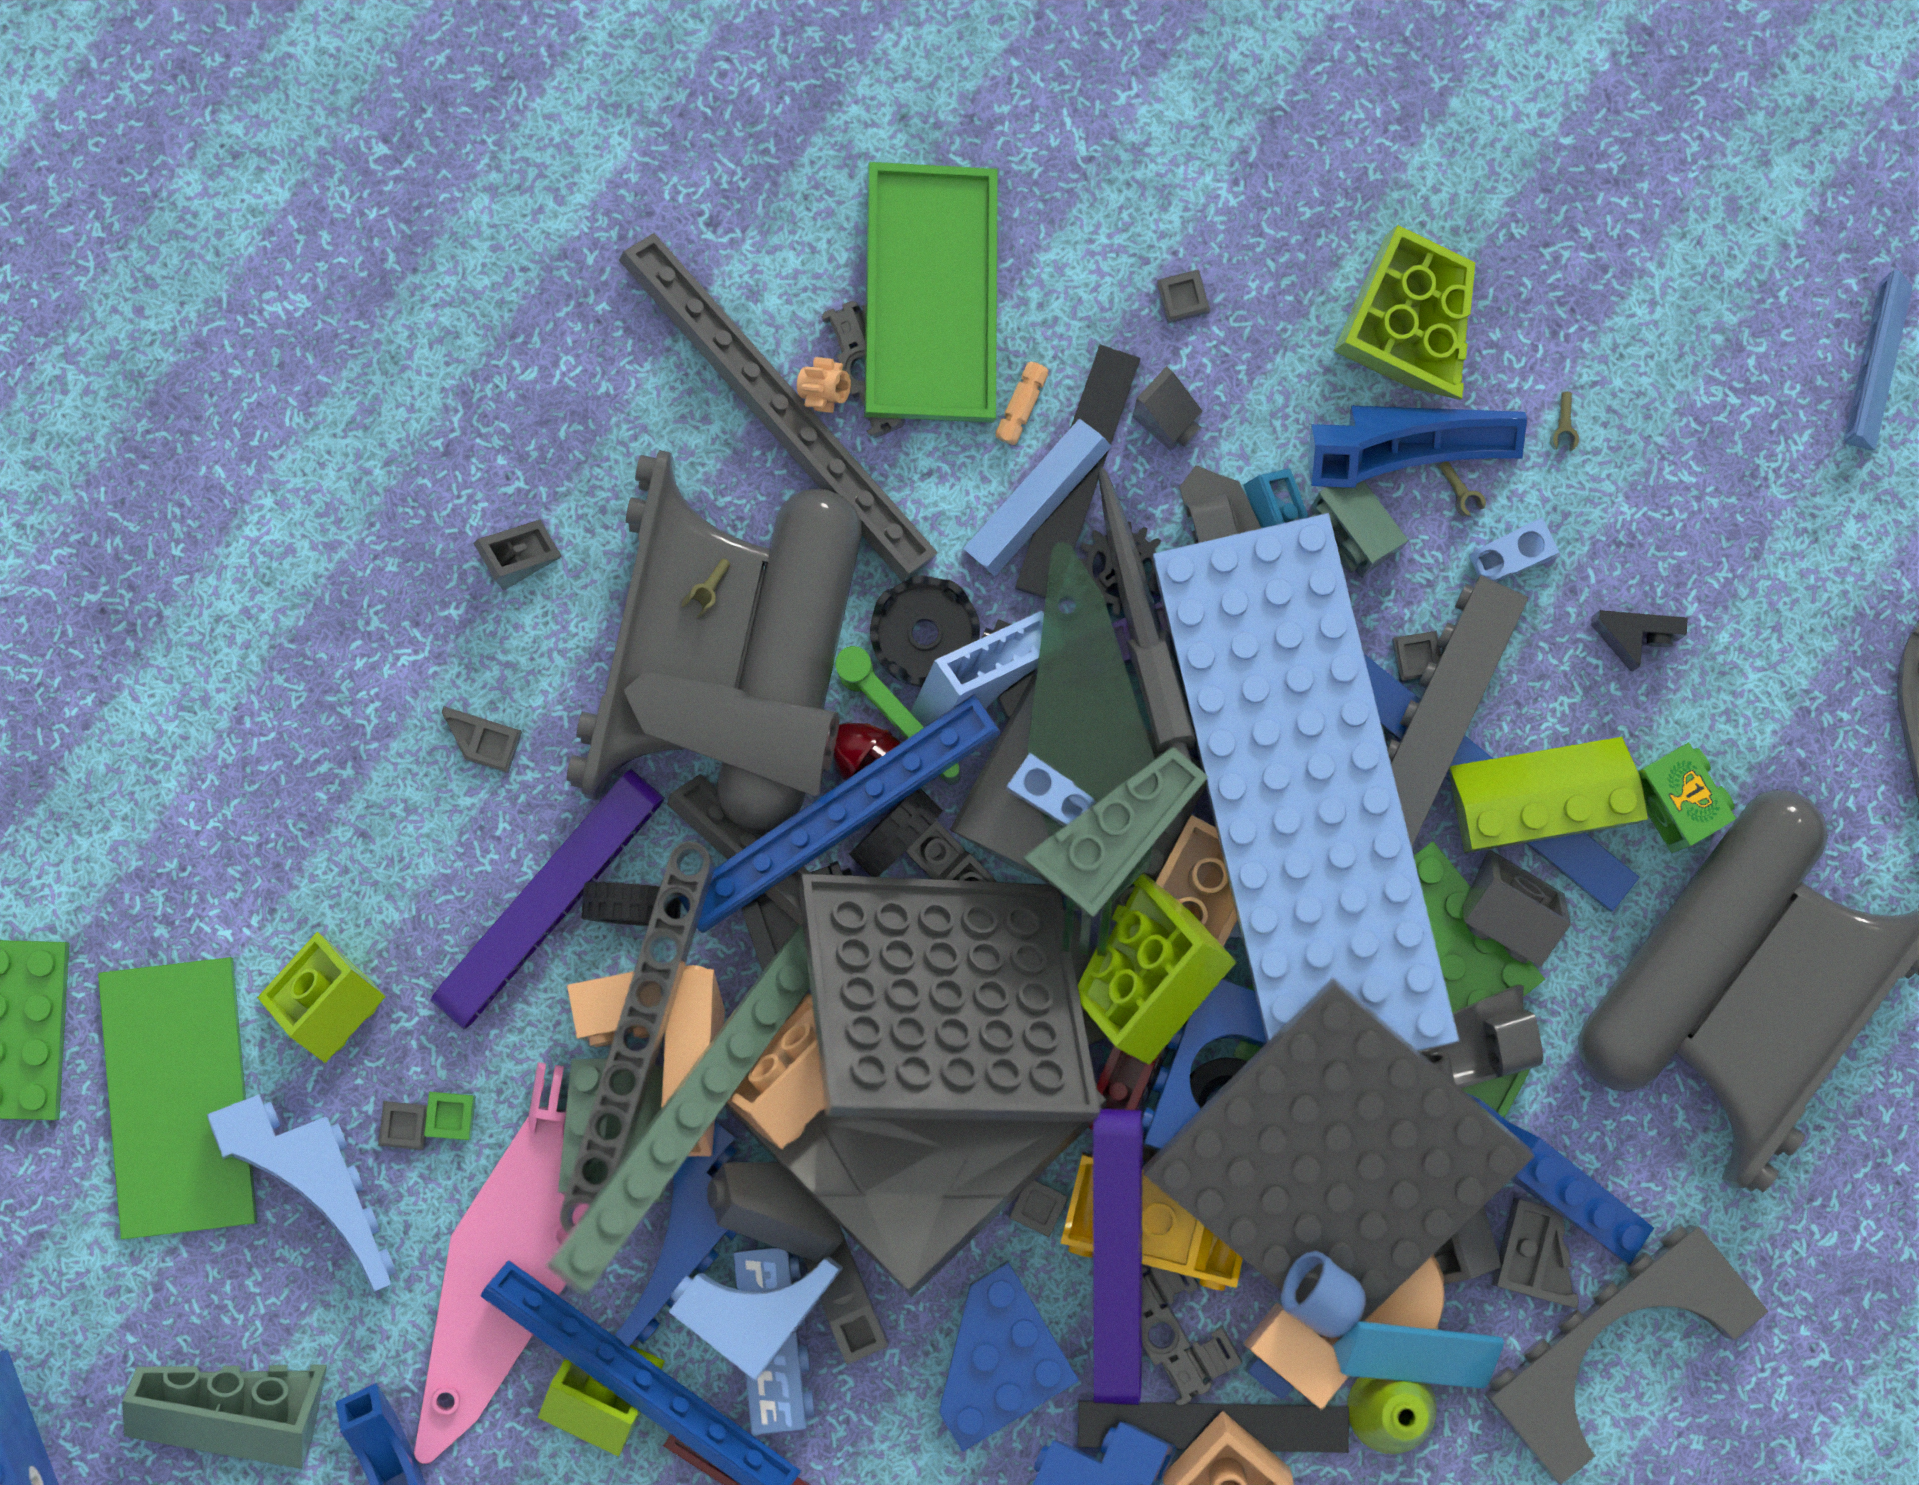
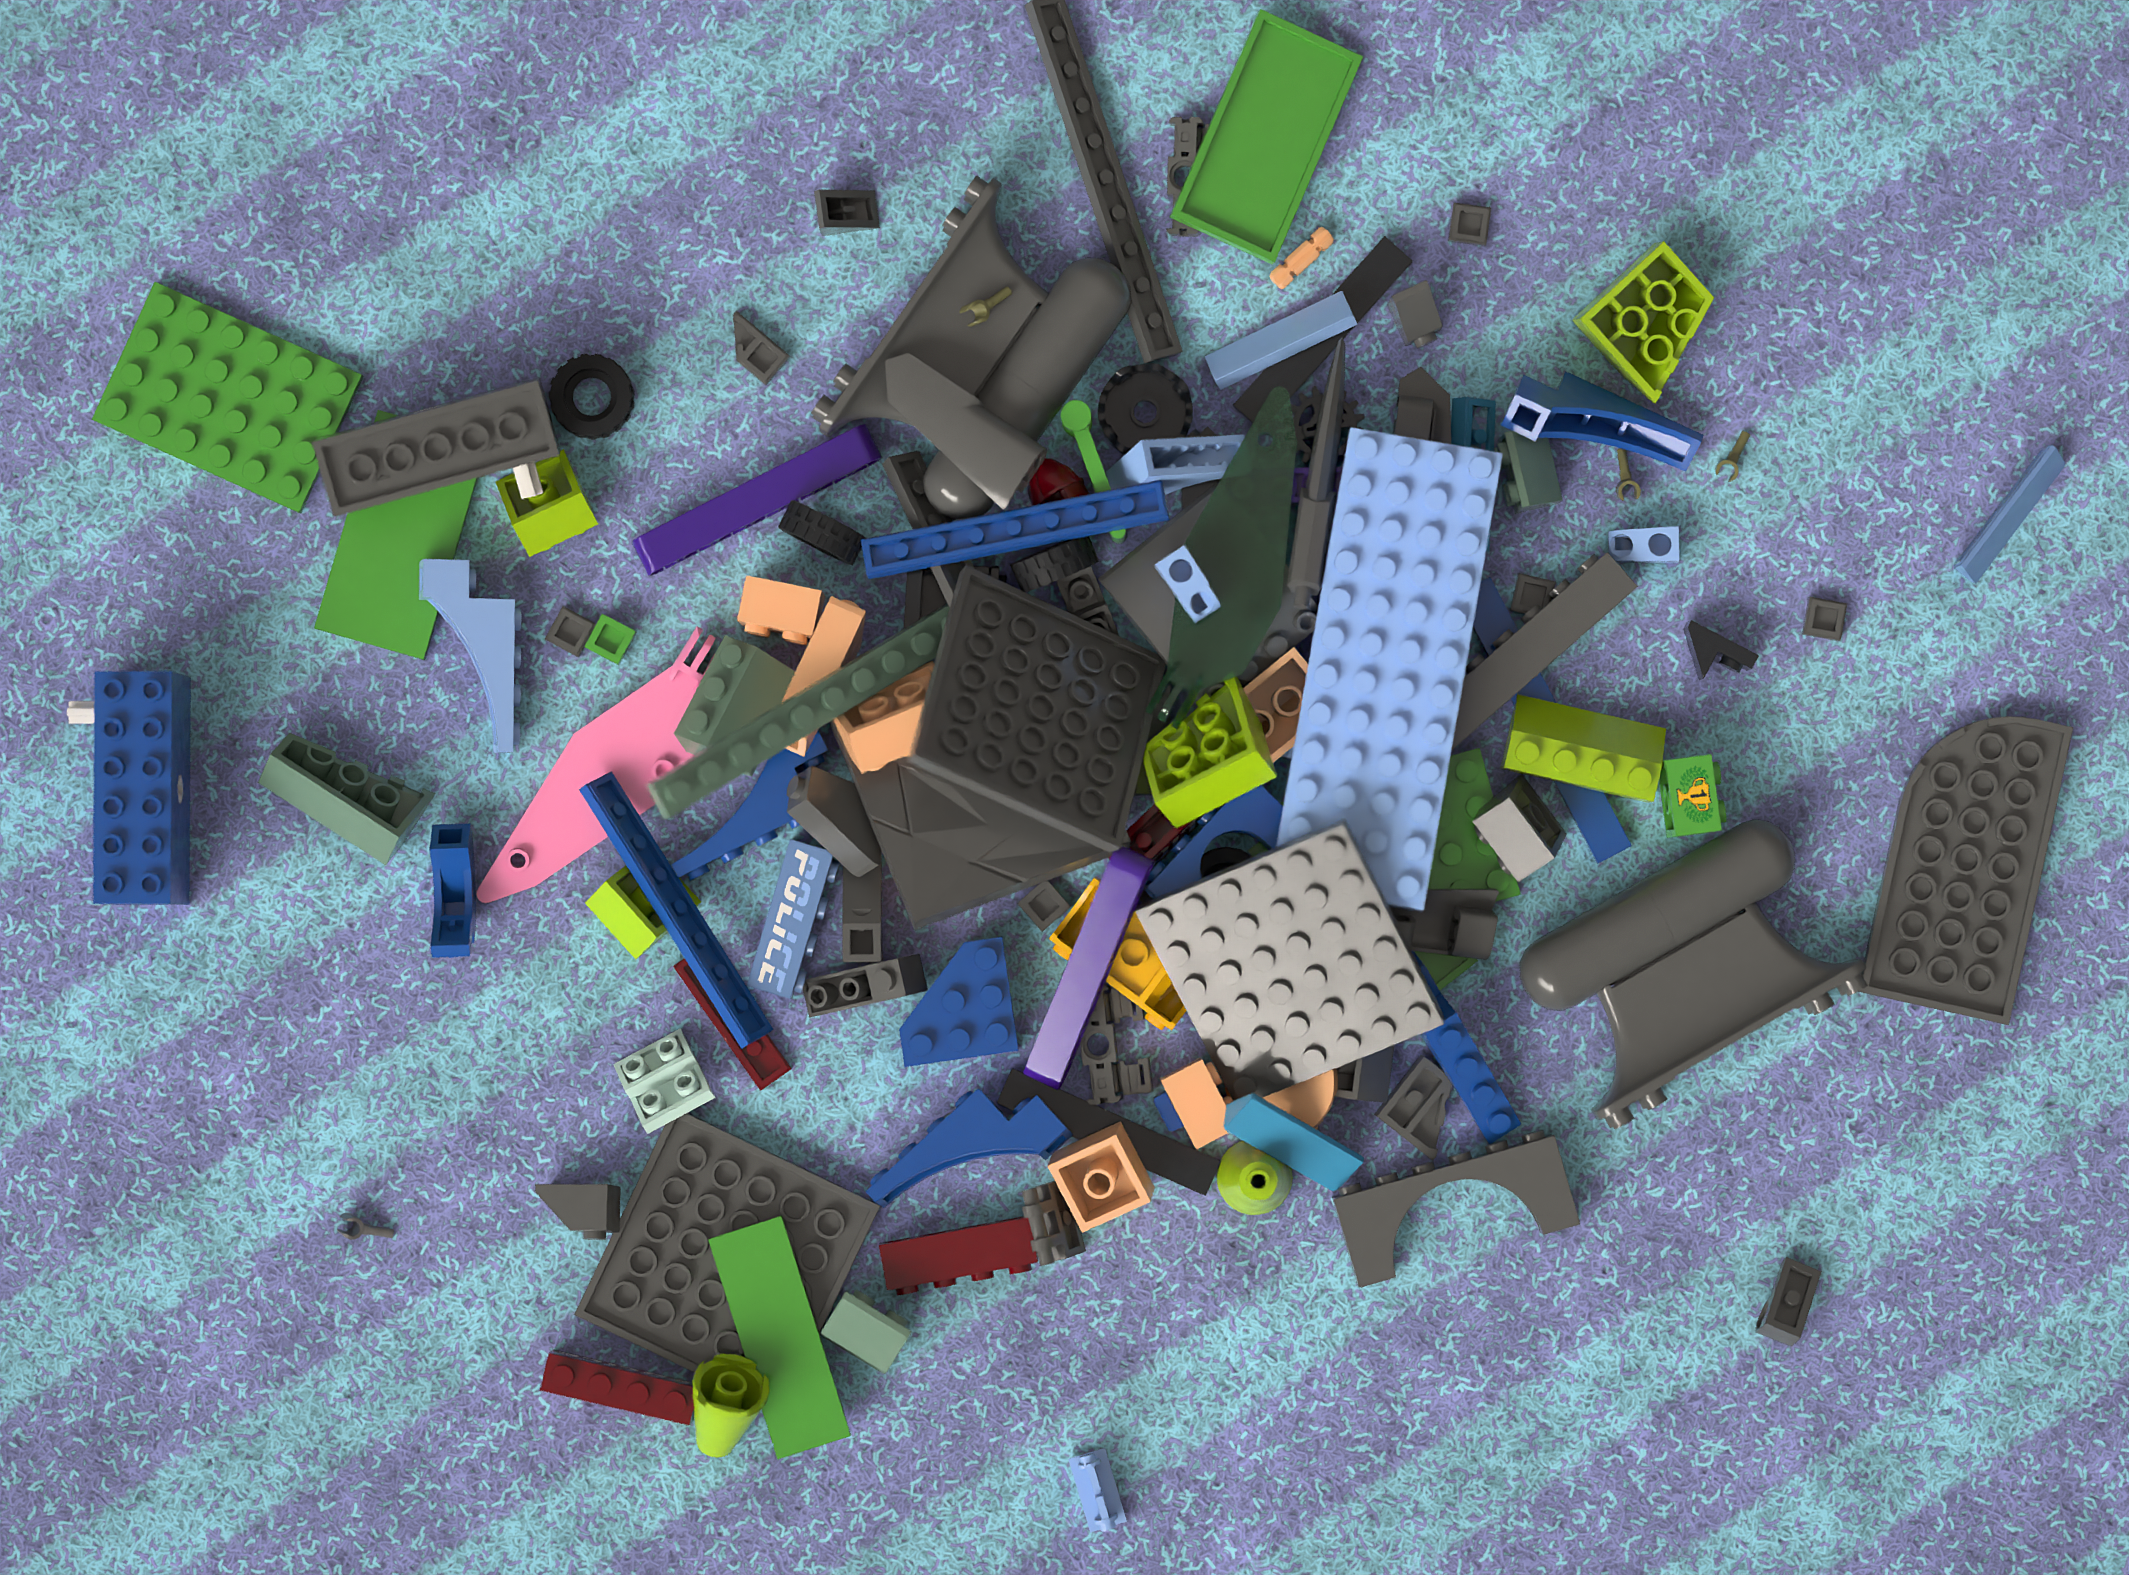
camera: 20 degrees right, 5 degrees up
(174, 986) = (440, 448): none -> dark grey piece
(300, 838) = (591, 425): none -> black tyre
(637, 1015) = (791, 622): dark grey beam -> none
(748, 1324) = (779, 899): light blue arch -> none
(823, 384) = (1147, 176): light nougat gear -> none
(881, 1378) = (864, 985): none -> dark grey slope
(1110, 837) = (1218, 638): sand green wing -> none
(1332, 1305) = (1241, 1069): medium blue helmet -> none
(1735, 552) = (1824, 619): none -> dark grey tile

